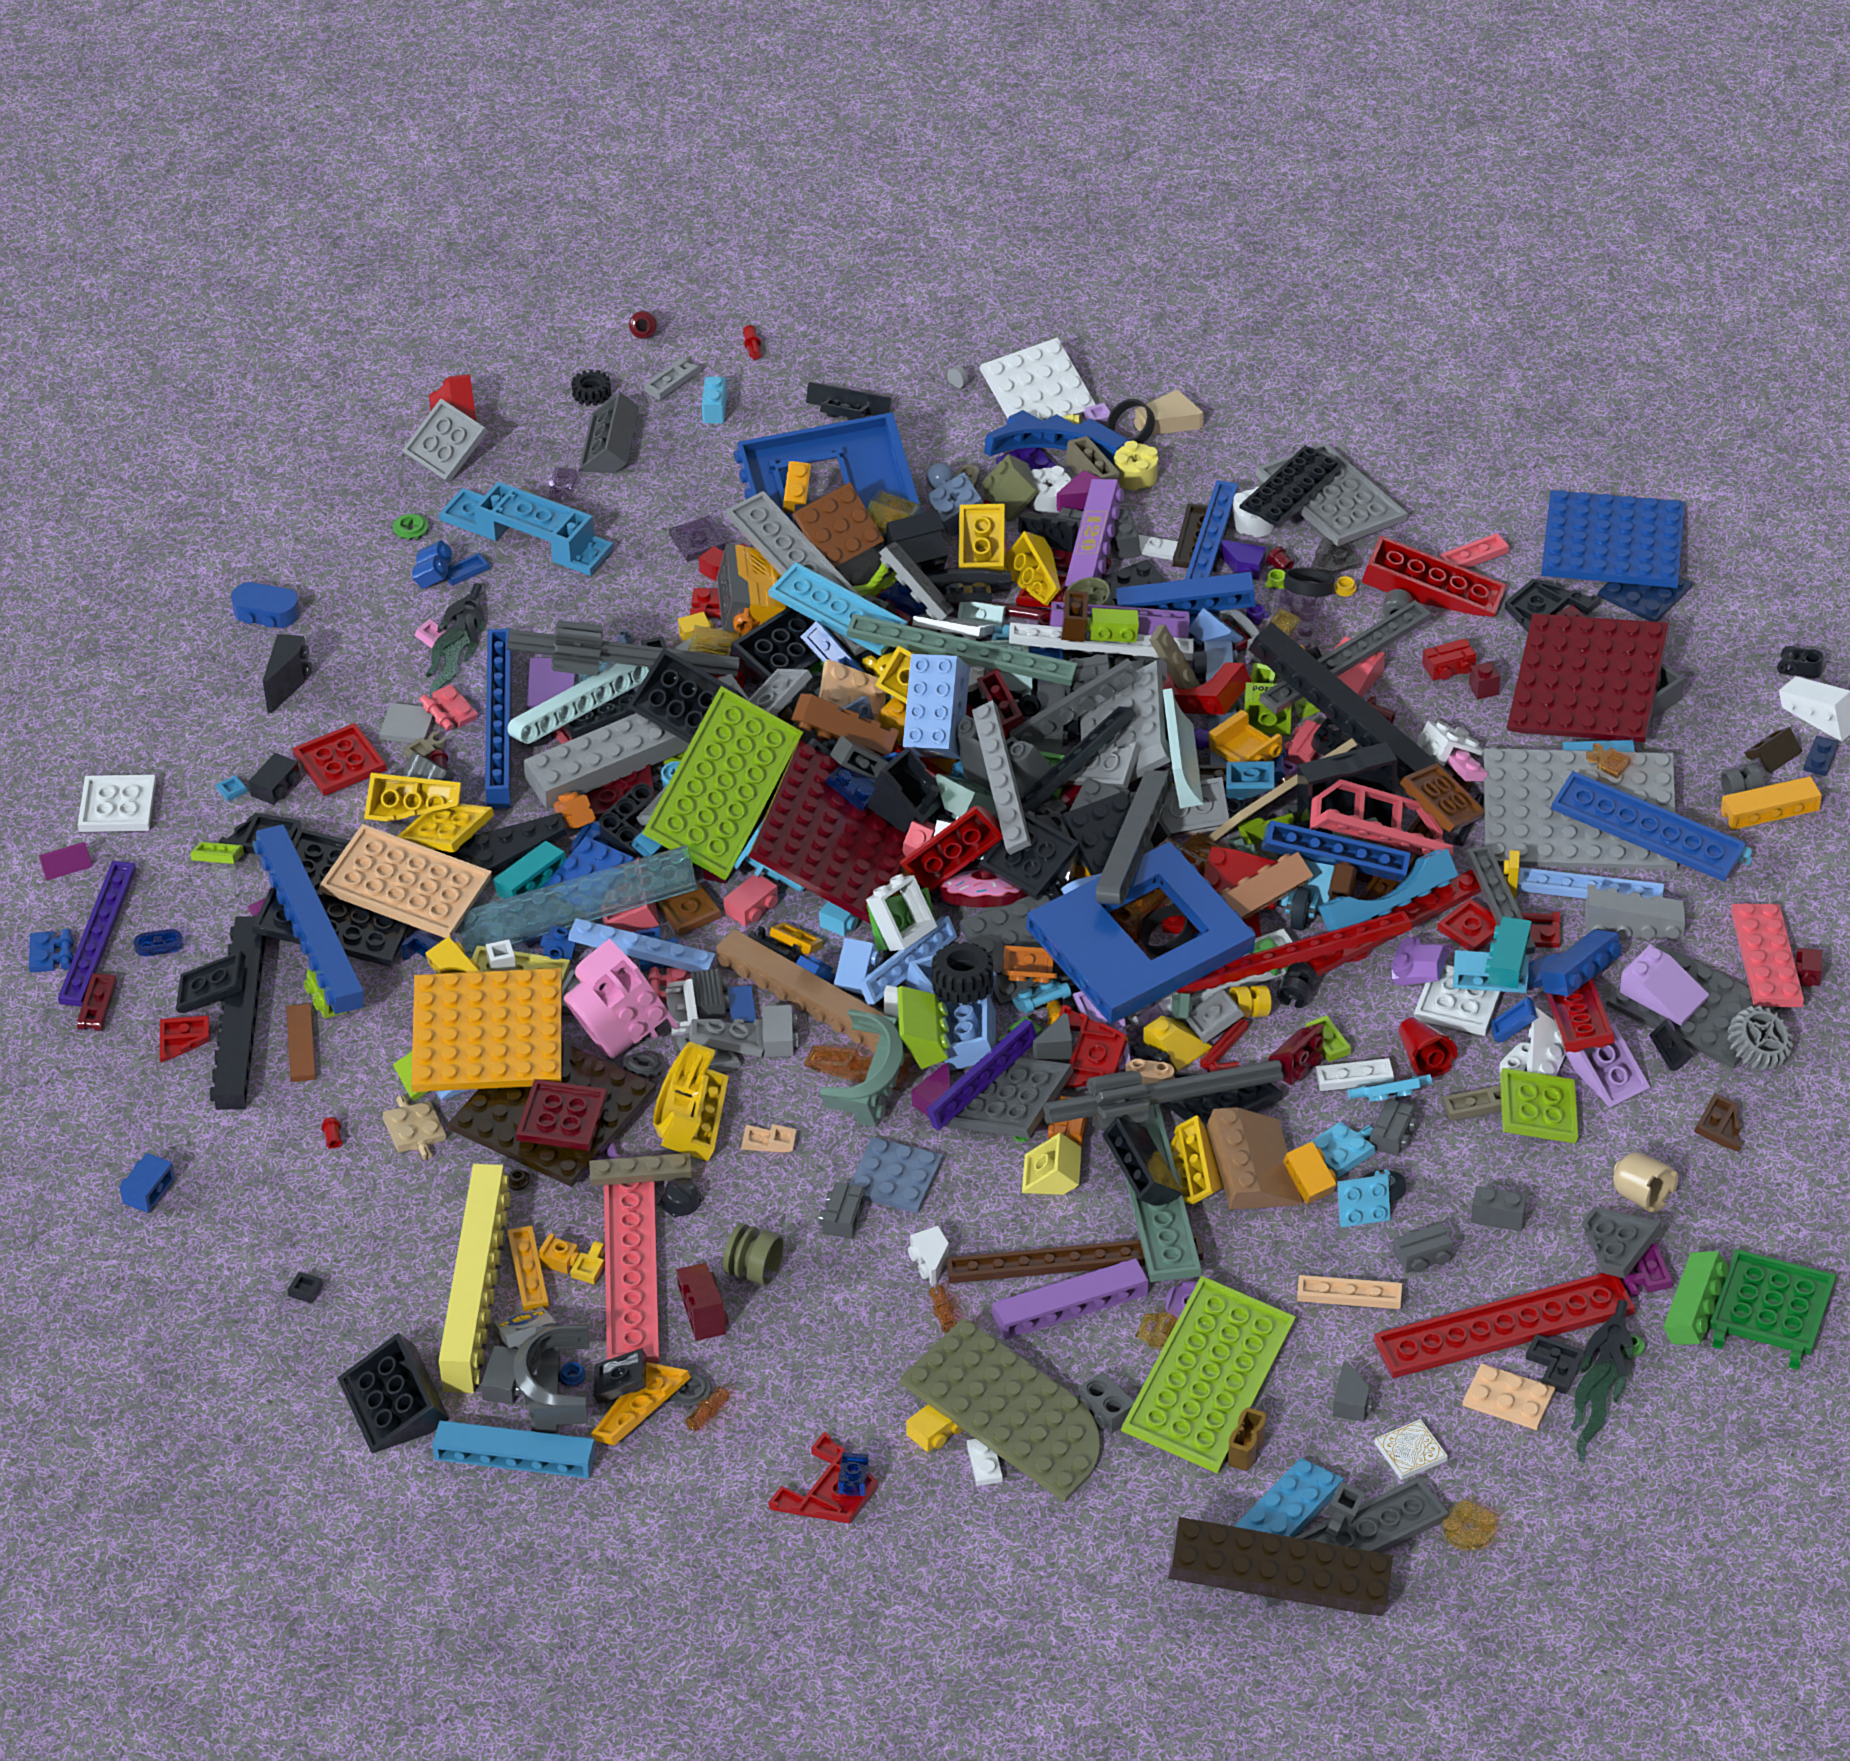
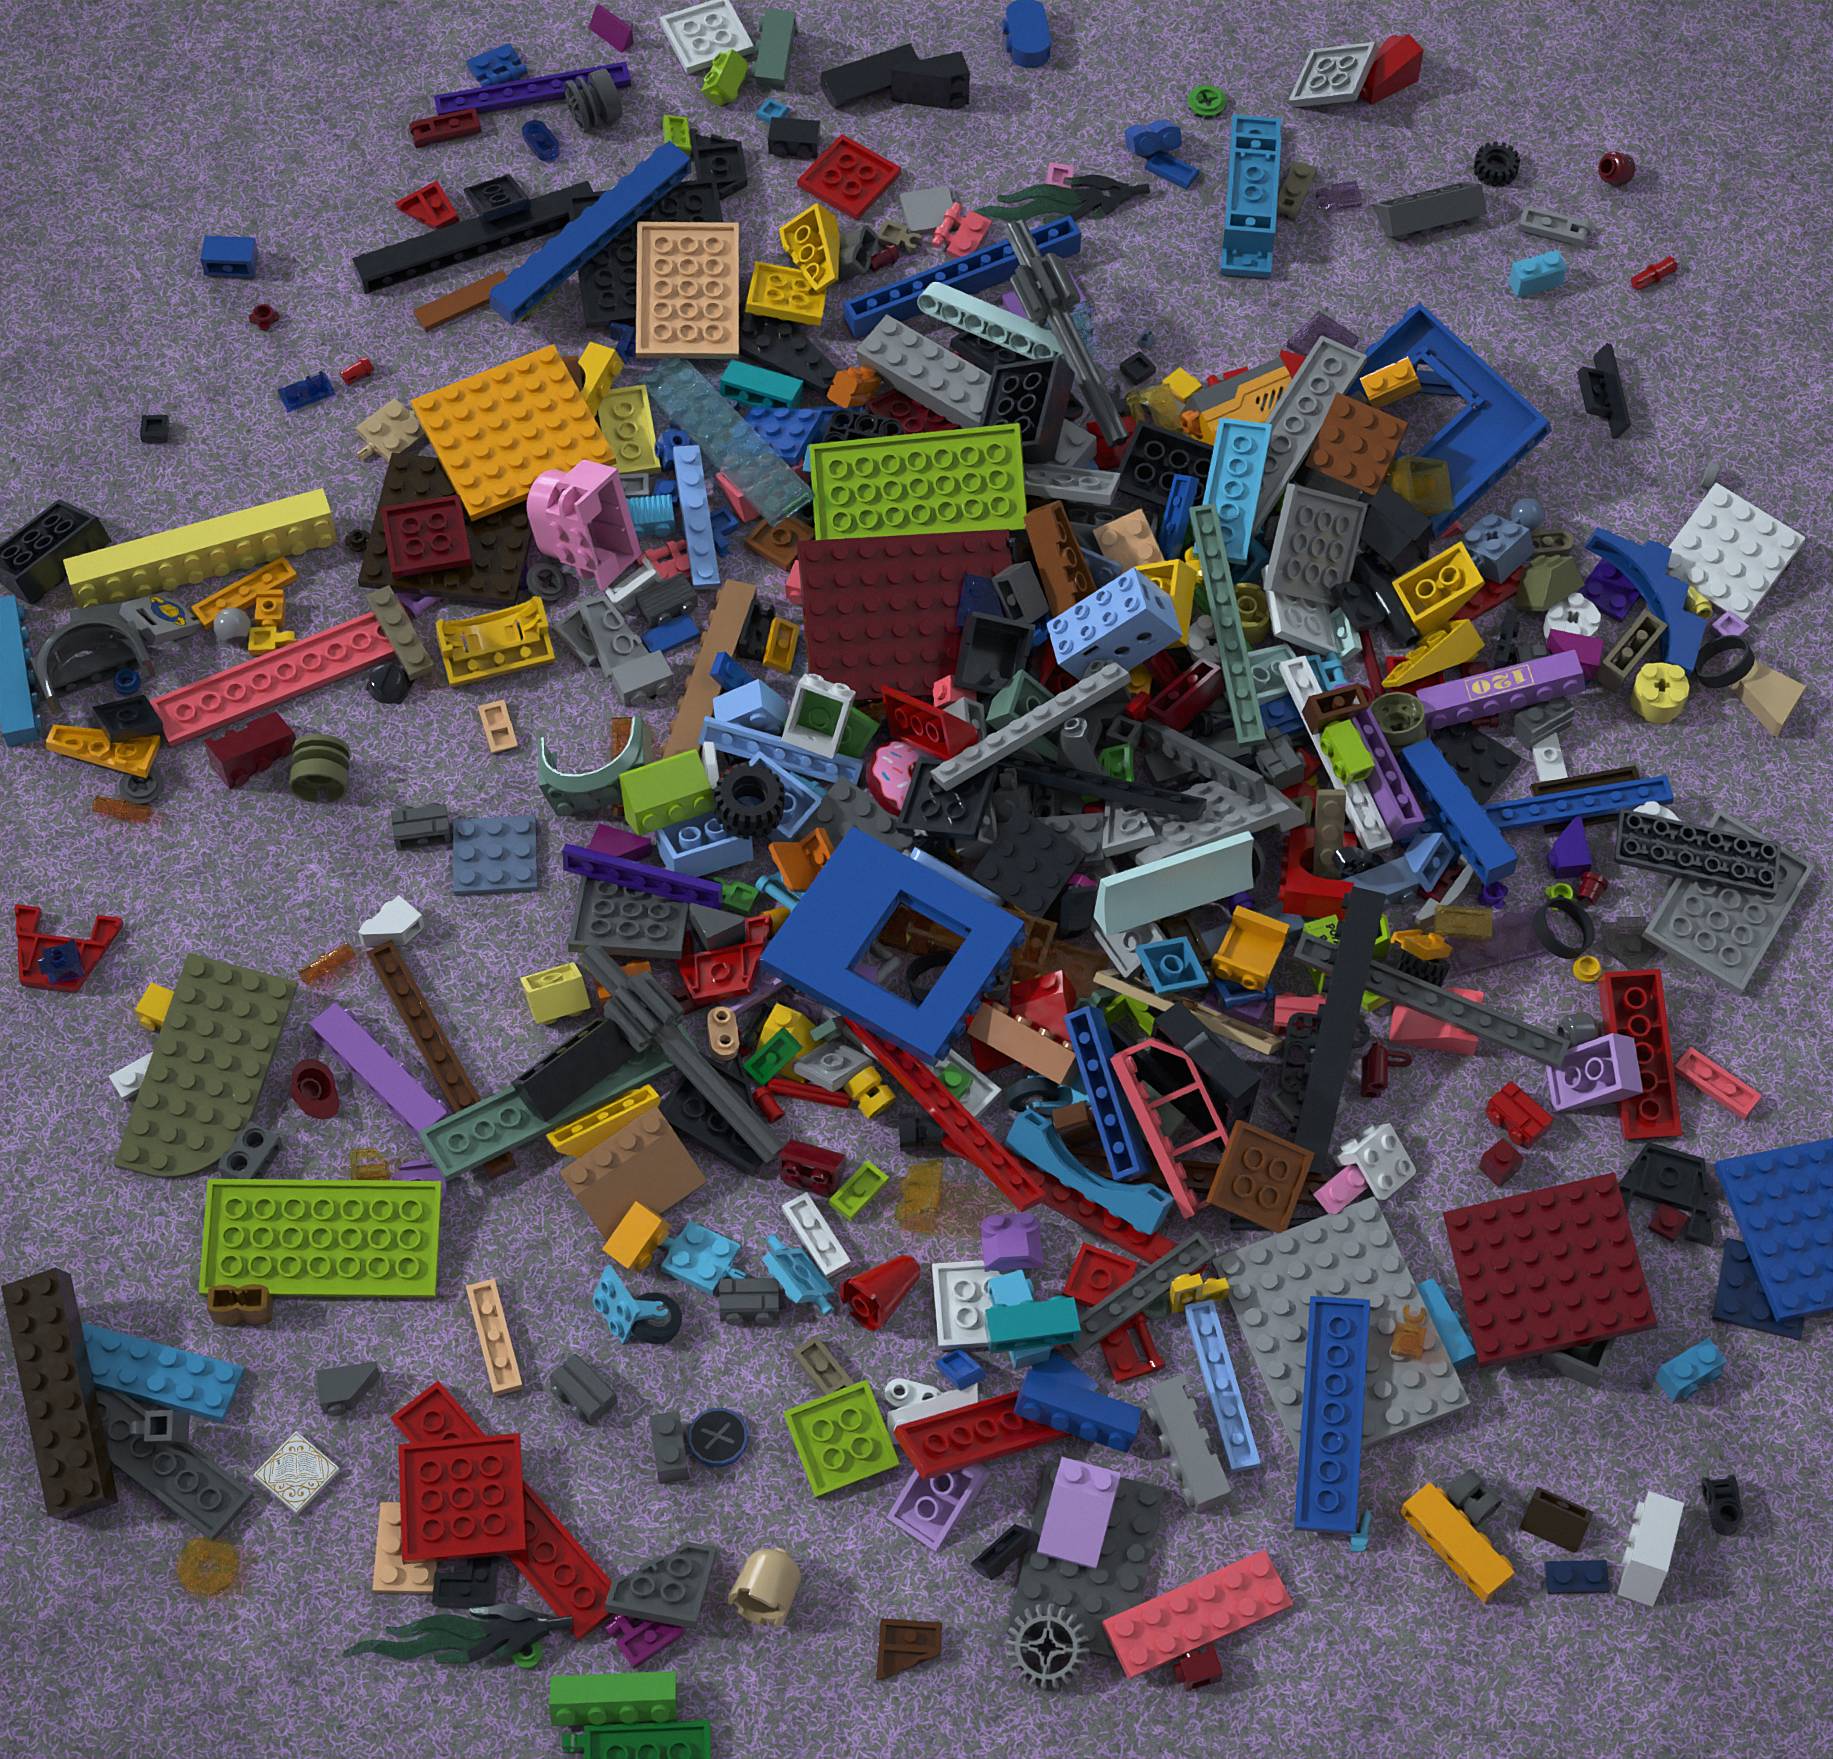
camera: 65 degrees right, 15 degrees up
(147, 887) = (589, 101): none -> dark grey wheel
(171, 758) = (774, 48): none -> sand green wedge
(178, 801) = (725, 77): none -> lime brick
(226, 1176) = (261, 311): none -> dark red plate
(244, 712) = (863, 76): none -> black brick
(331, 1174) = (306, 392): none -> clear blue plate
(500, 956) = (624, 406): white plate -> none
(561, 1281) = (232, 625): none -> light grey piece
(1066, 1345) = (311, 1080): none -> dark red piece
(1133, 837) = (997, 883): dark grey beam -> none
(1188, 1047) = (772, 1056): none -> green plate
(1357, 995) = (921, 1197): none -> clear yellow slope
(1446, 598) = (1596, 1074): none -> lavender slope
(1489, 1339) = (461, 1498): none -> red plate
(1500, 1177) = (717, 1437): none -> black tile
(1694, 641) = (1690, 1370): none -> dark azure brick

